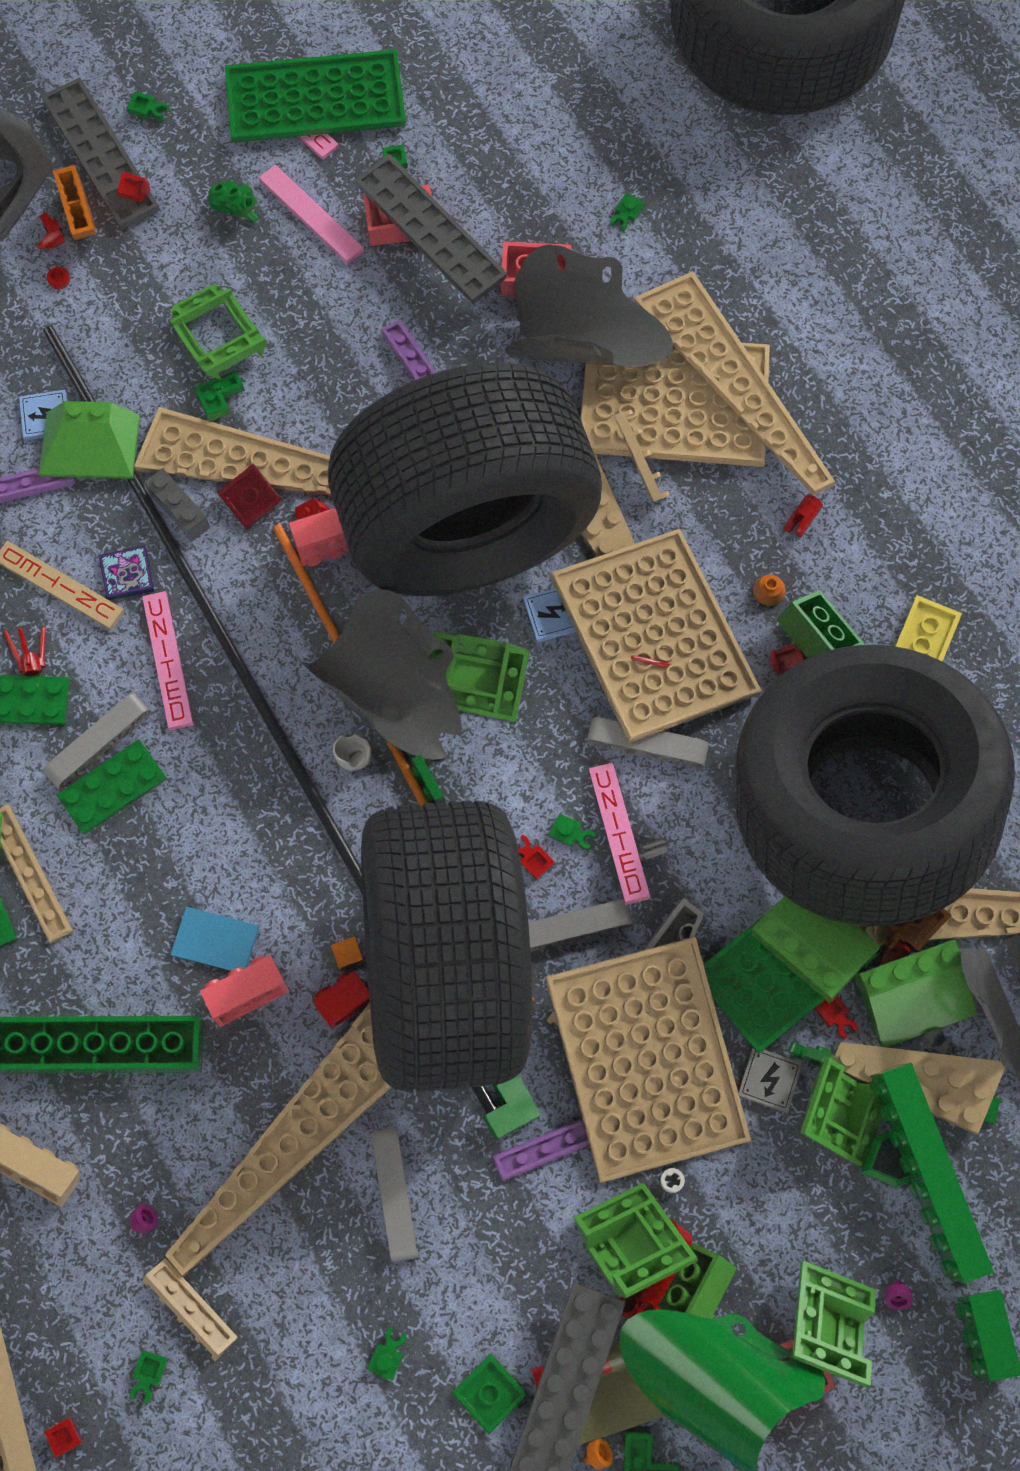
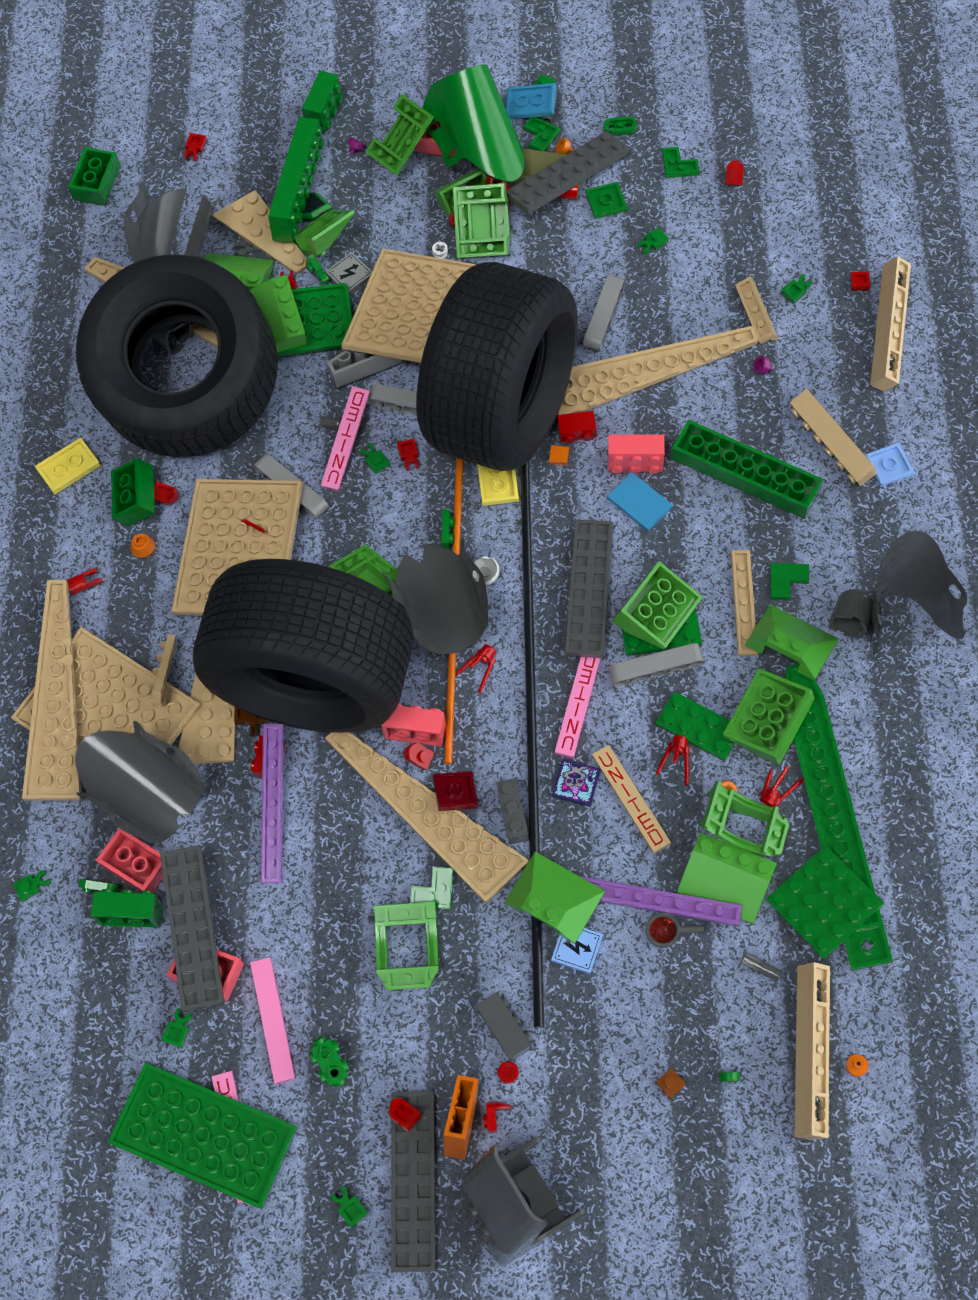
camera: 145 degrees left, 5 degrees down
(80, 308) = (504, 1026): none -> dark grey brick
(123, 802) = (658, 607): none -> bright green slope
(220, 794) = (589, 589): none -> dark grey plate
(299, 652) = (485, 656): none -> red plant
(513, 220) = (126, 909): none -> green brick
(564, 234) = (91, 885): none -> green plate

